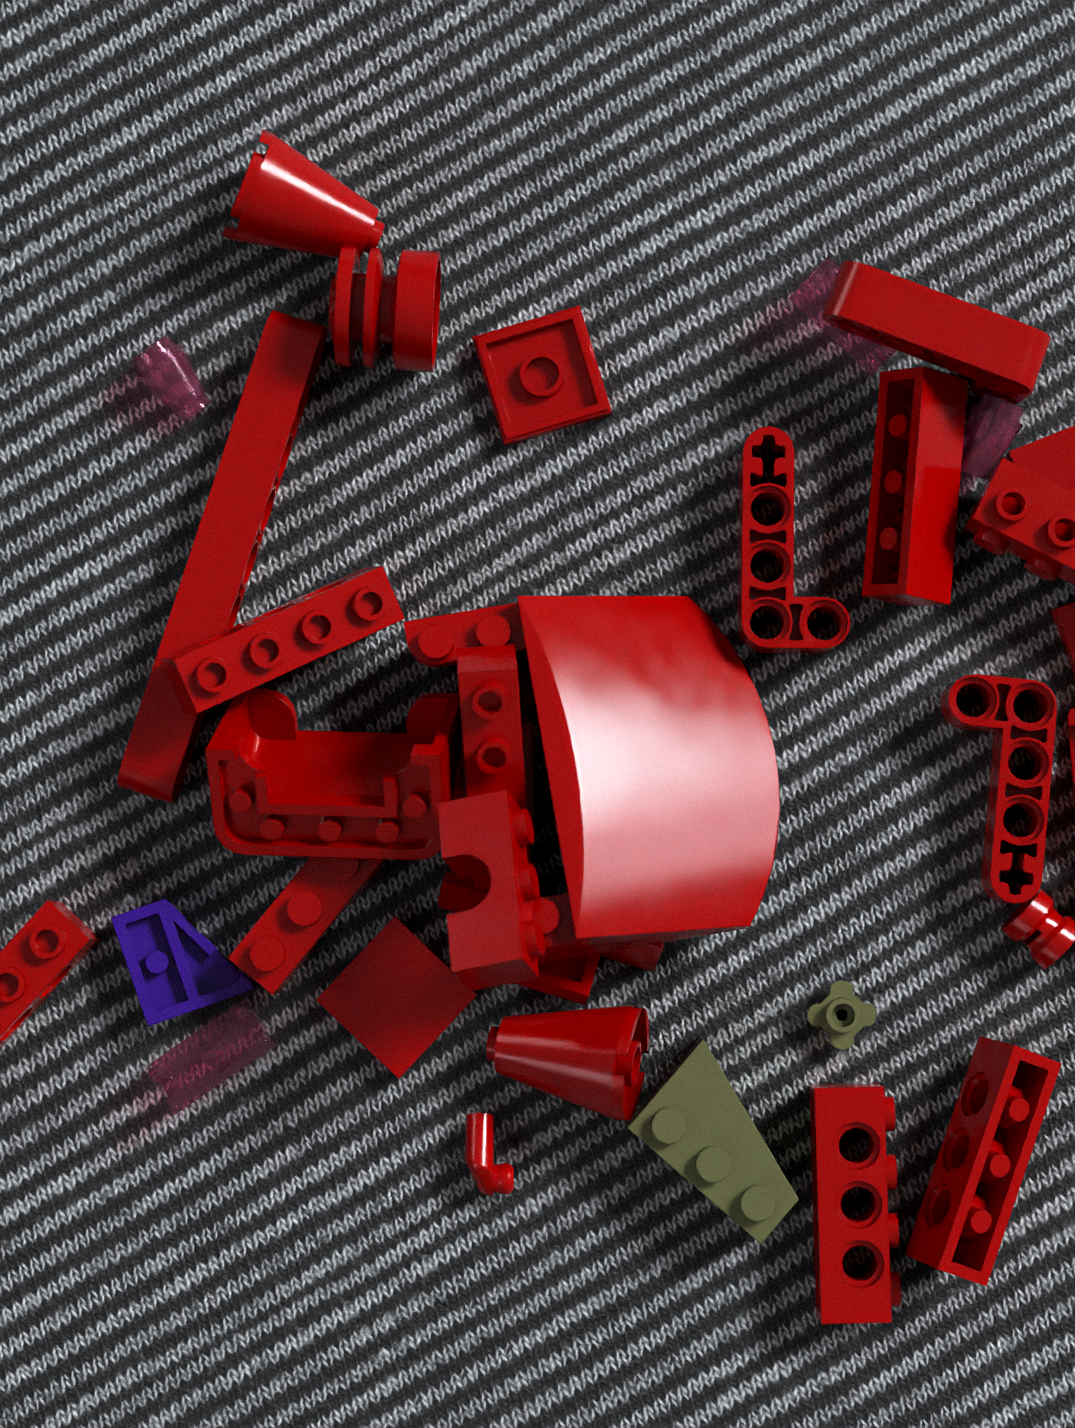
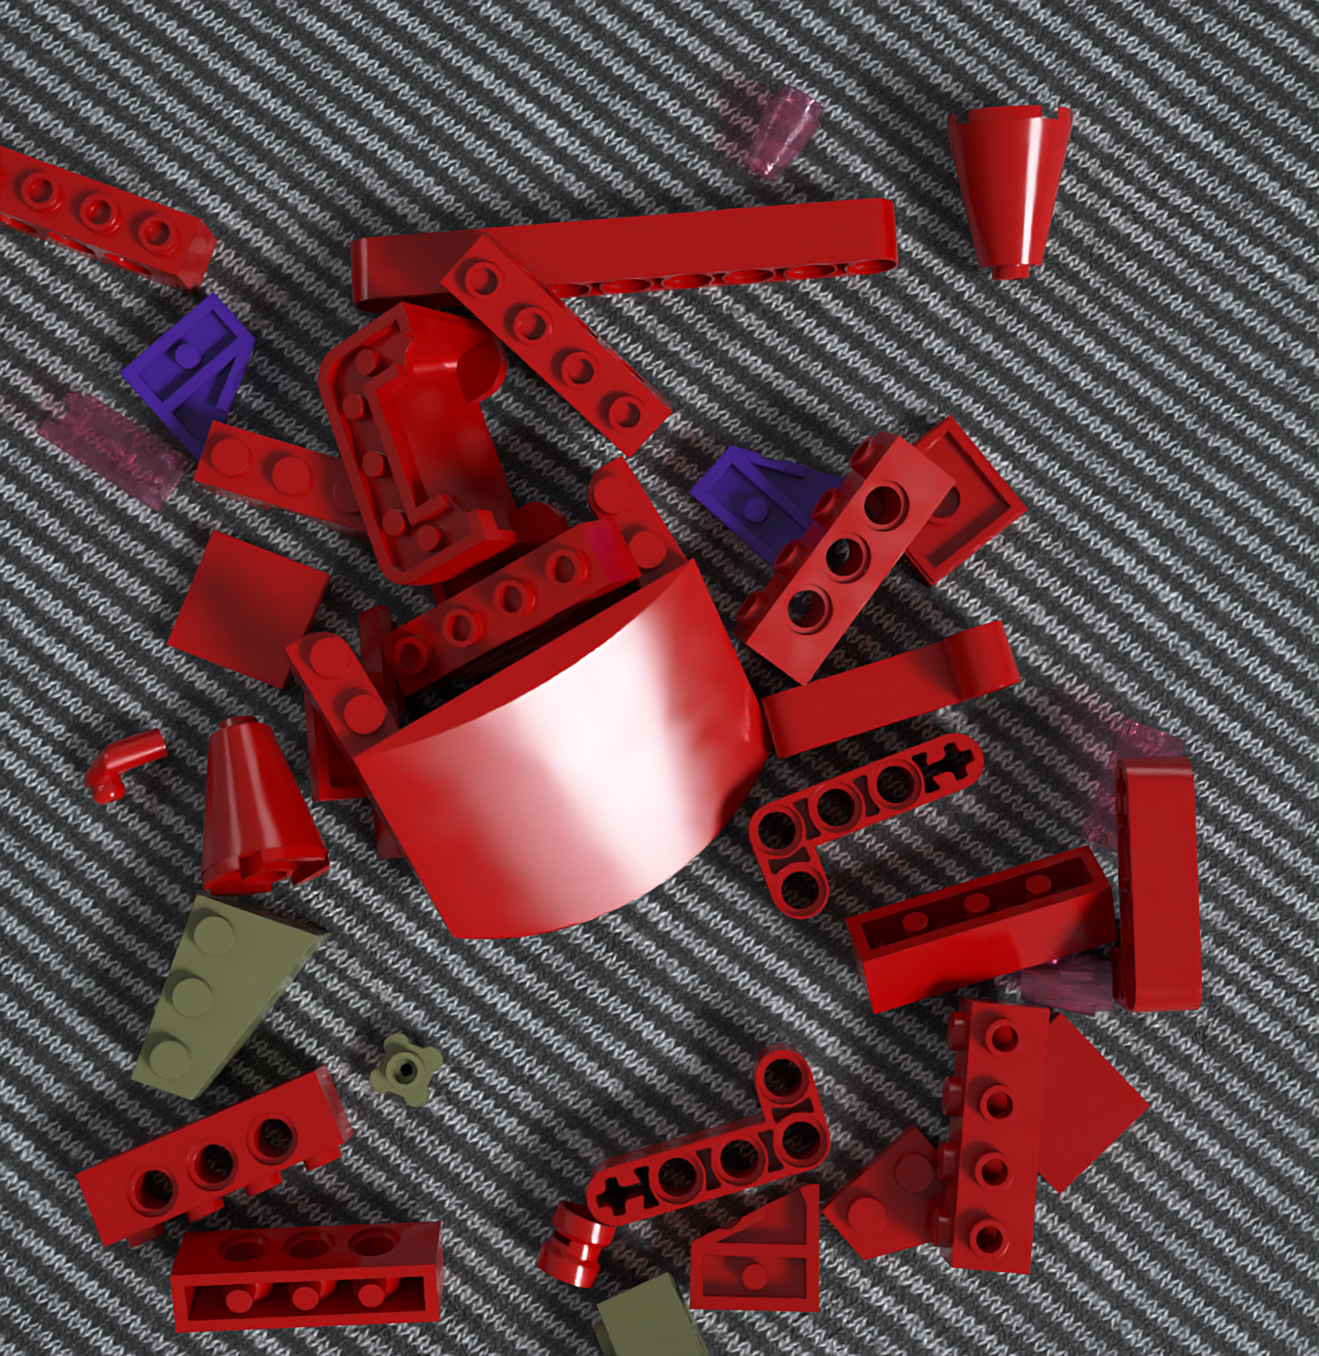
camera: 70 degrees right, 0 degrees up
(386, 308) = (936, 300): red wheel -> none
(487, 515) = (762, 498): none -> dark purple wing
(499, 937) = (320, 677): red arch -> none
(563, 444) = (912, 491): none -> red brick
(687, 481) = (891, 690): none -> red beam

